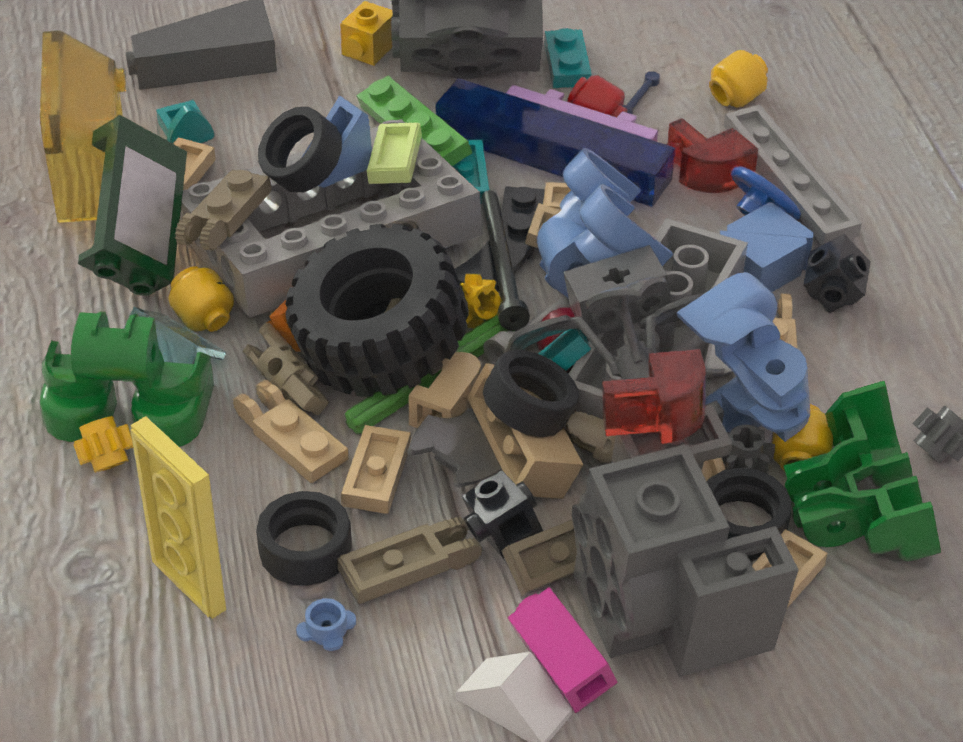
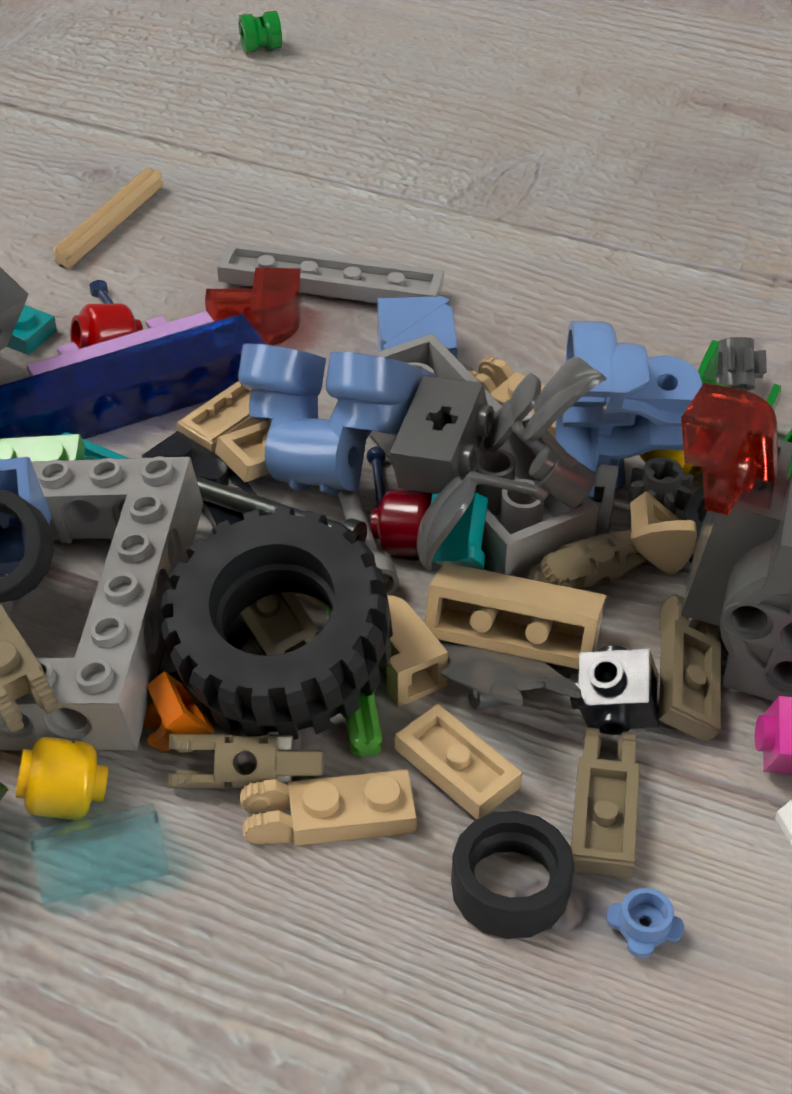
camera: 55 degrees left, 0 degrees up
(82, 388) = (176, 885): green piece -> none
(103, 444) = (215, 992): yellow gear -> none
(179, 517) = (487, 947): light yellow tile -> none
(394, 153) = (73, 487): yellowish green tile -> none
(523, 410) = (513, 570): black tyre -> none
(729, 39) = (107, 217): none -> tan axle
(738, 79) = (179, 236): yellow head -> none
(760, 192) = (354, 302): blue piece -> none
(837, 273) = (496, 315): black brick -> none

